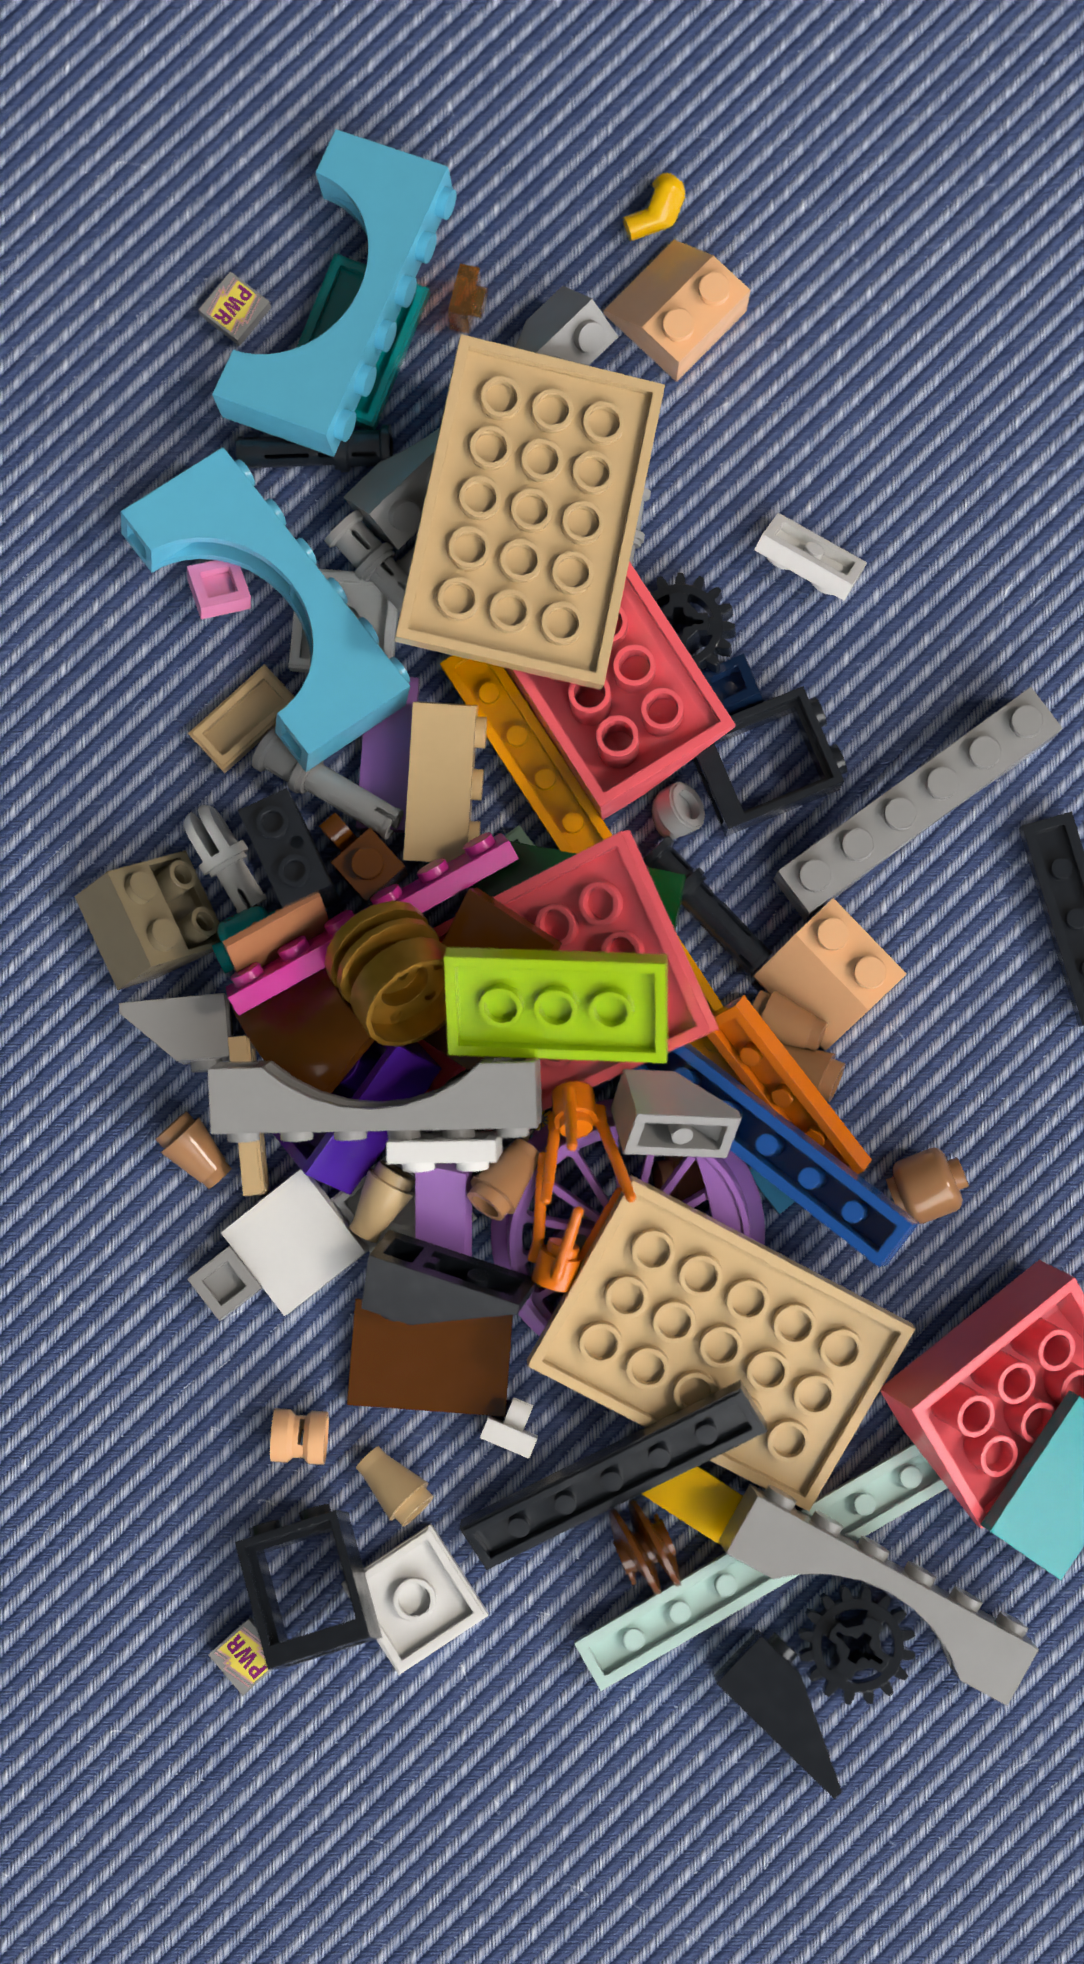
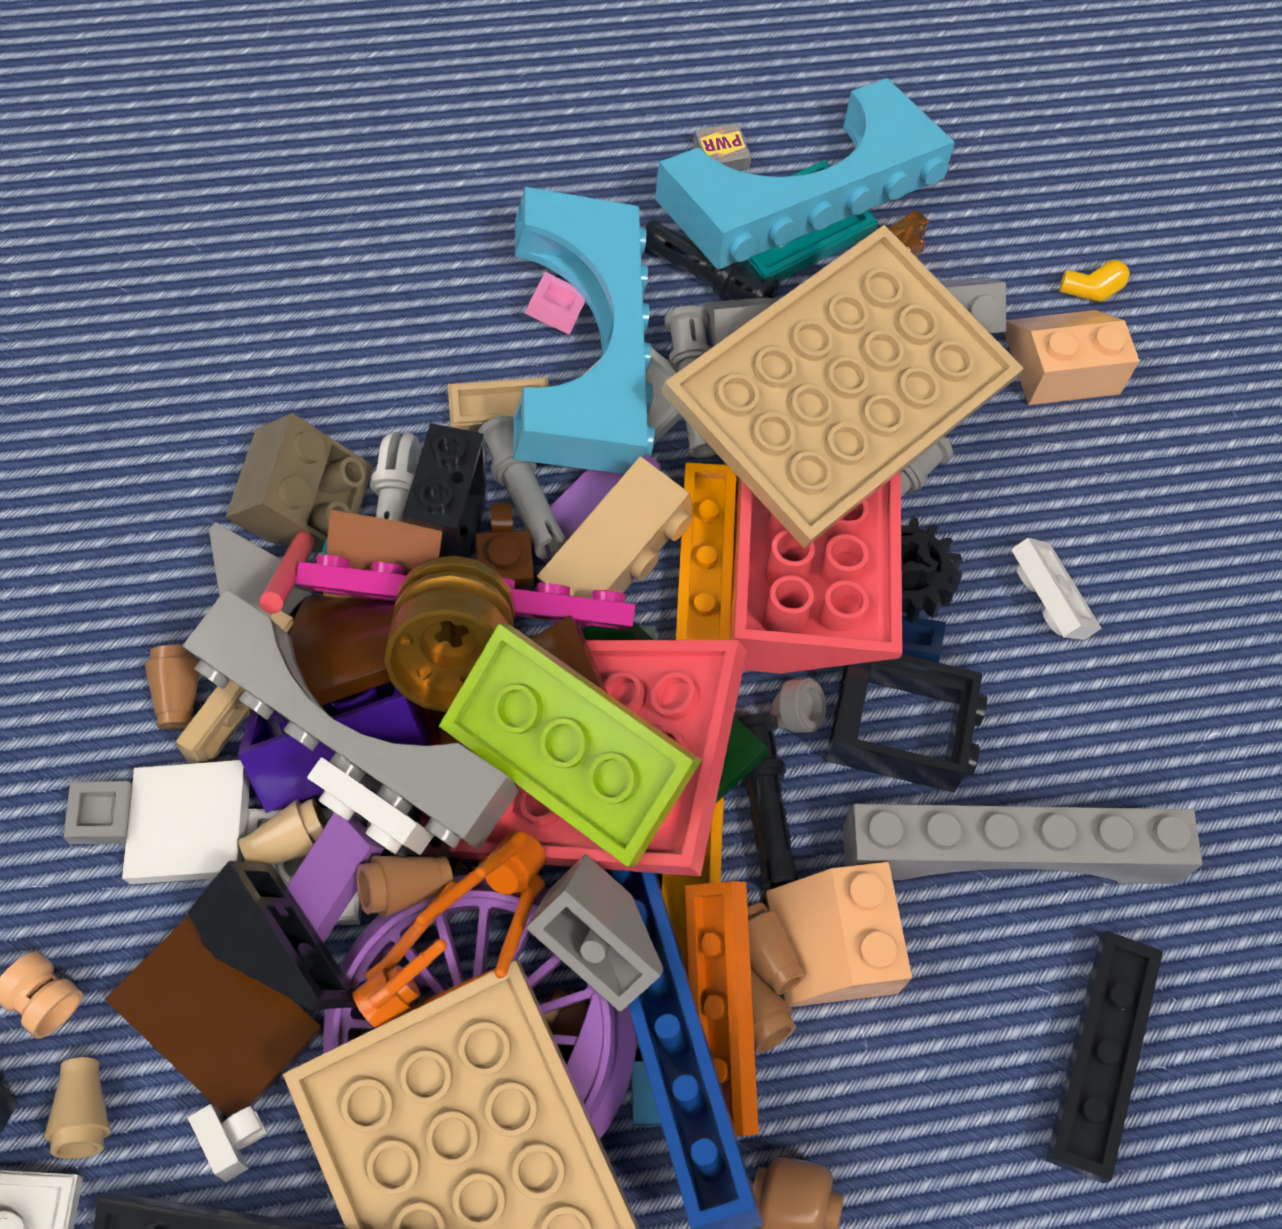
camera: 25 degrees right, 20 degrees down
(221, 1008) = (285, 574): none -> coral bar

